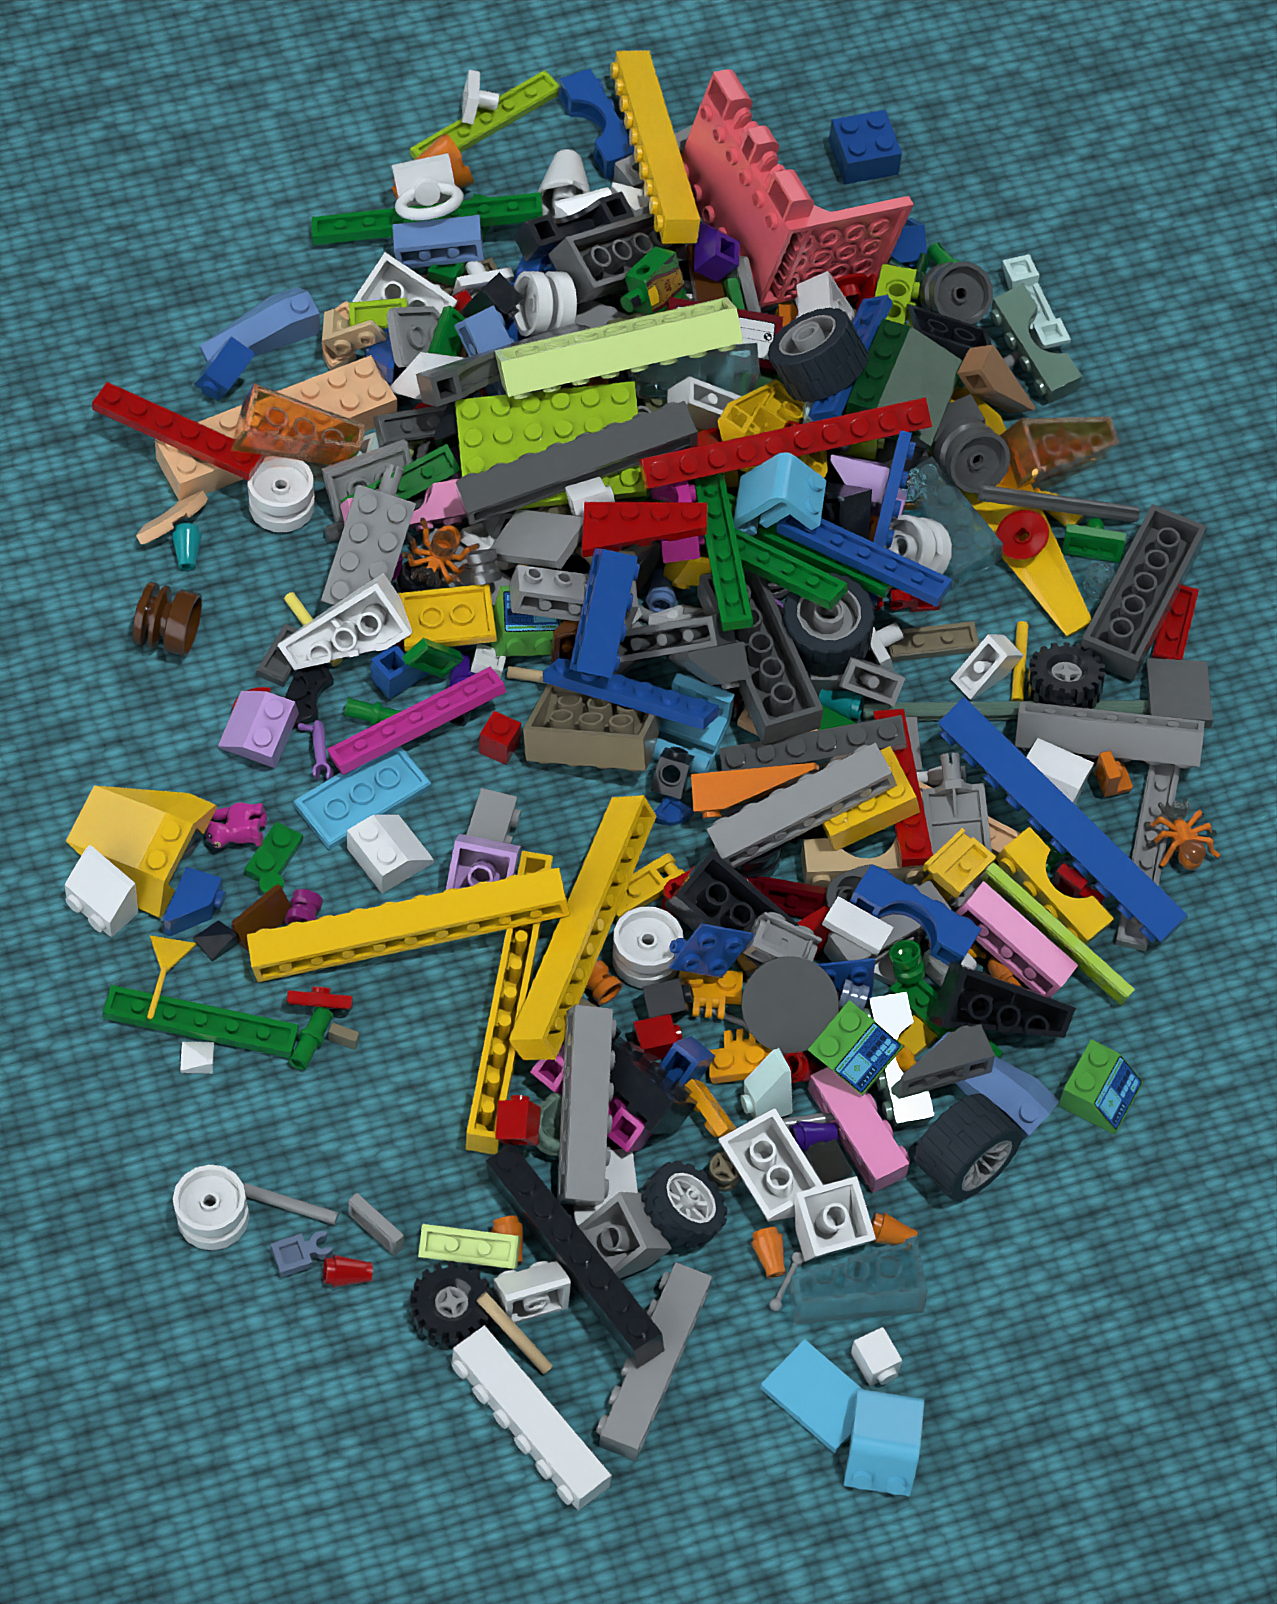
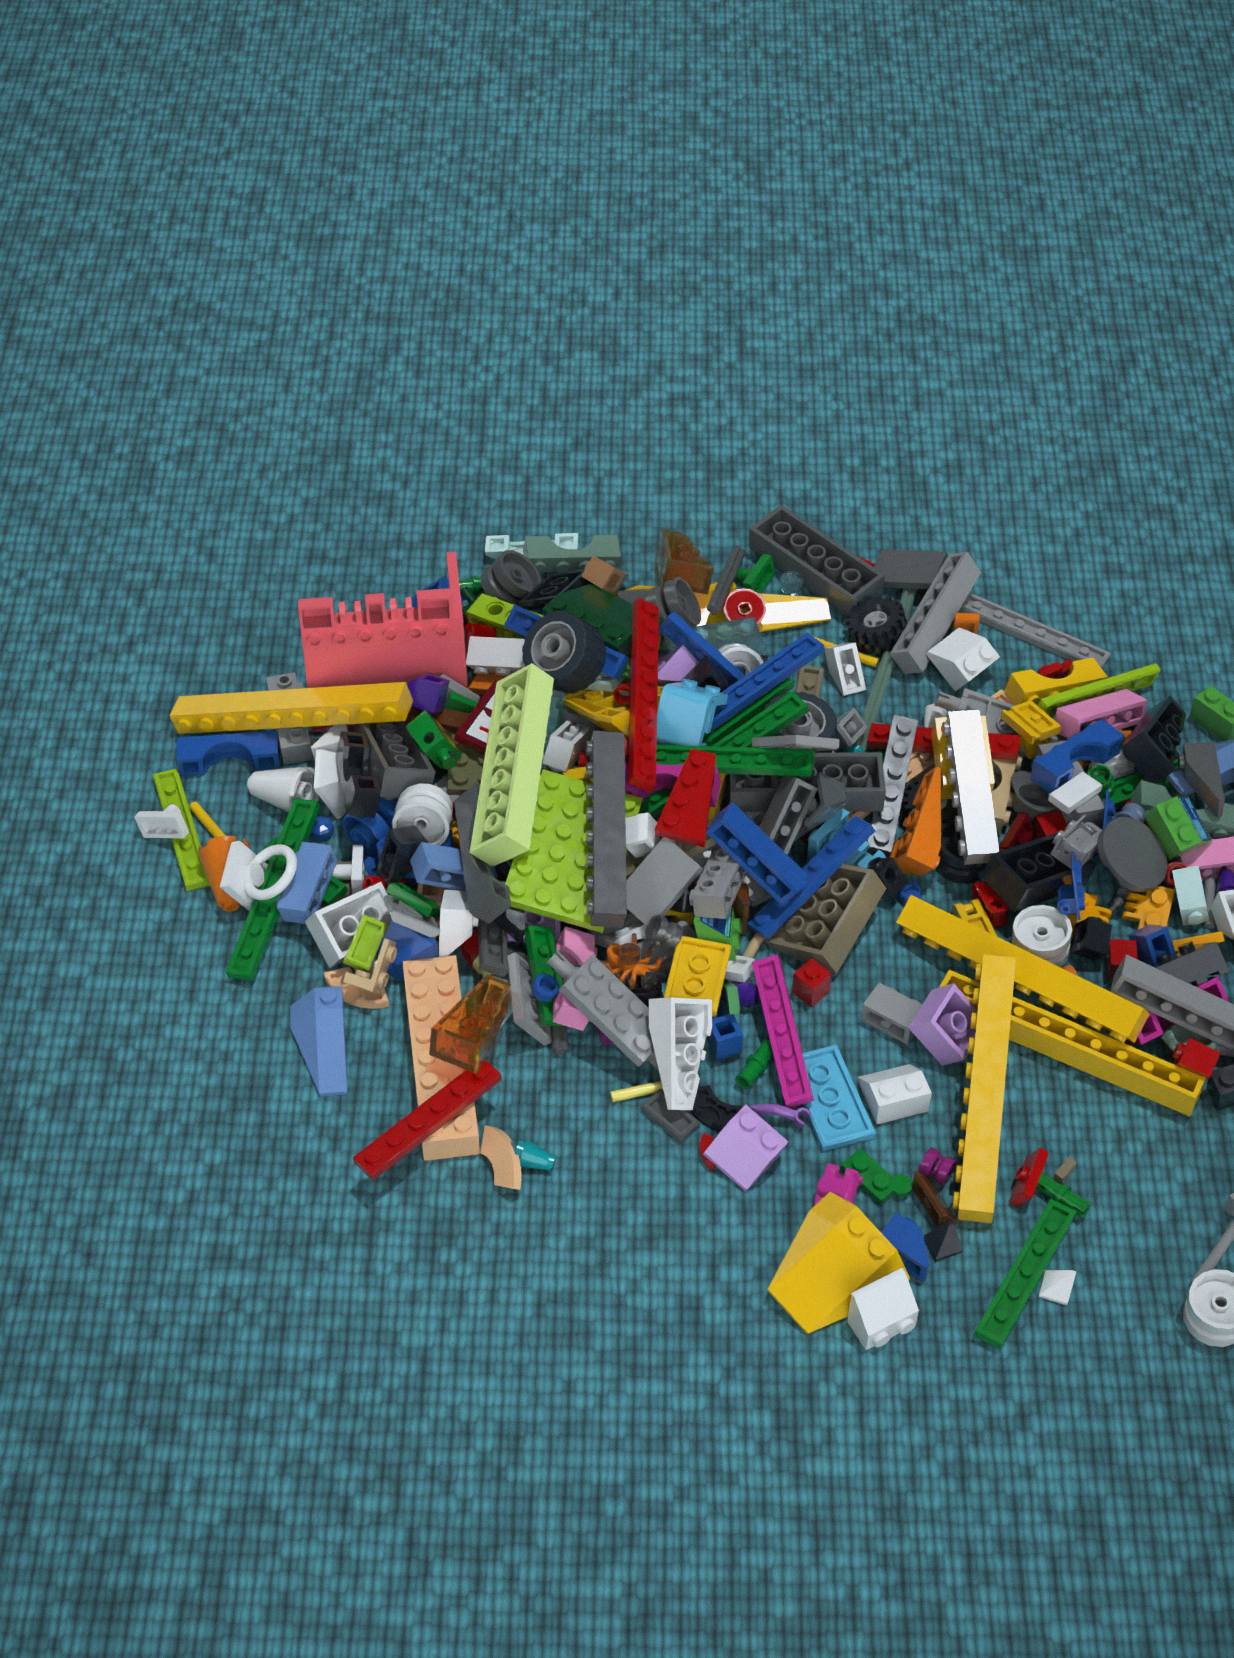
camera: 65 degrees left, 10 degrees down
(161, 617) = (615, 1183): reddish brown wheel -> none
(168, 954) = (946, 1280): yellow piece -> none
(224, 368) = (366, 1072): blue slope -> none
(281, 494) = (520, 1067): white wheel -> none
(370, 478) = (545, 987): none -> blue tile
(497, 146) = (206, 820): none -> yellow bar
(757, 600) = (796, 742): none -> light grey tile
(865, 147) = (341, 586): blue brick -> none
(1062, 820) = (1009, 654): blue brick -> none
(1185, 842) = (1032, 605): animal -> none

